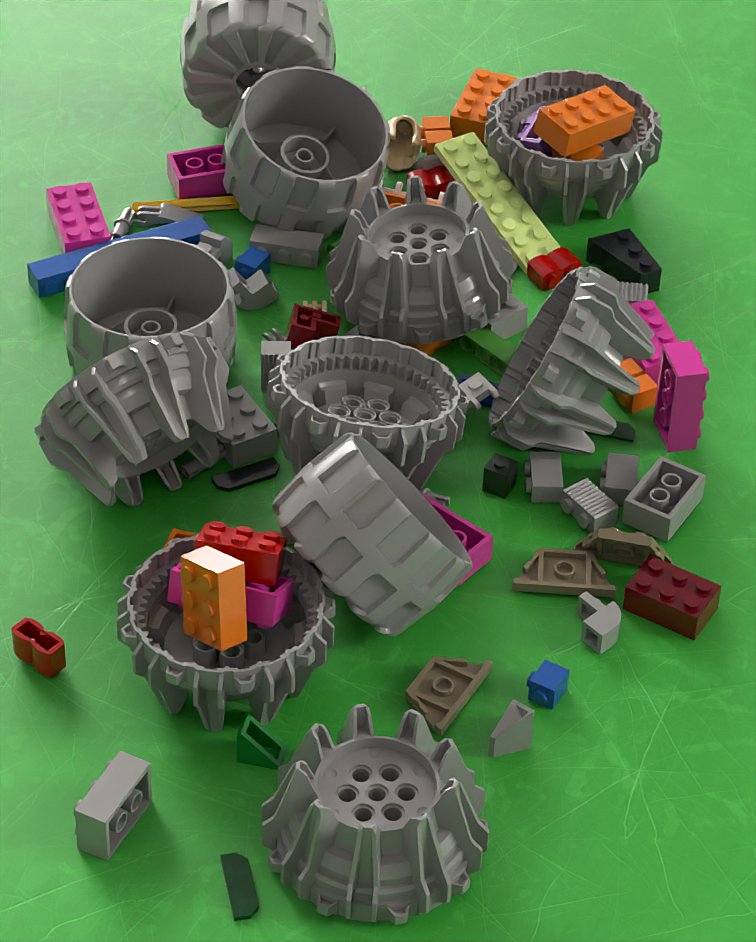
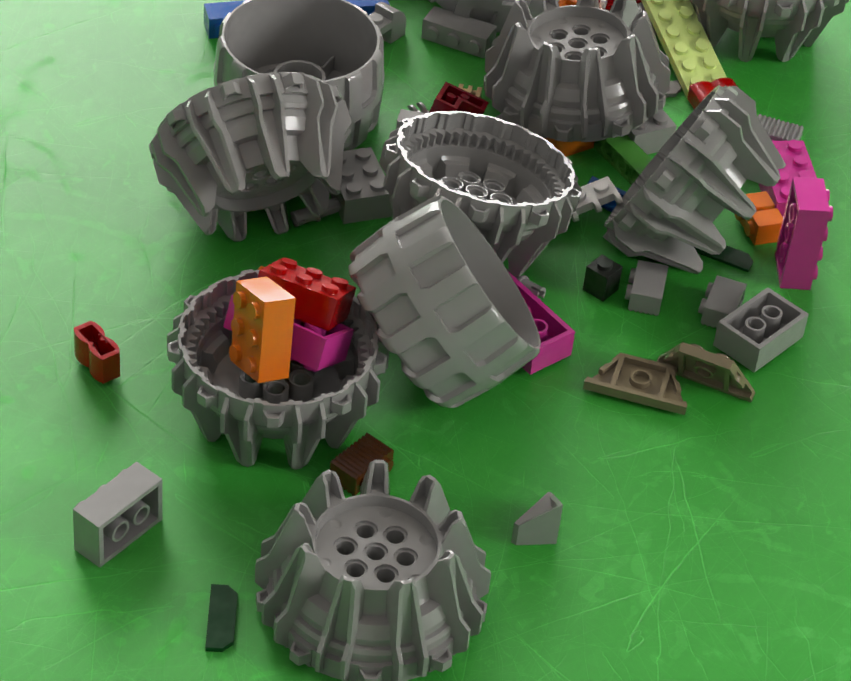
camera: 10 degrees right, 0 degrees up
(246, 475) = (349, 233): black piece -> none
(252, 261) = (420, 44): blue brick -> none
(254, 292) = (413, 67): light grey brick -> none
(258, 745) = (279, 484): green slope -> none
(327, 706) = (354, 461): none -> reddish brown brick
(445, 688) = (485, 469): dark tan wing -> none
(548, 684) = (590, 484): blue brick -> none
(589, 505) = (683, 321): light grey brick -> none
(600, 622) = (661, 436): light grey brick -> none
(624, 258) = (788, 99): black wedge -> none
(671, 597) = (742, 425): dark red brick -> none

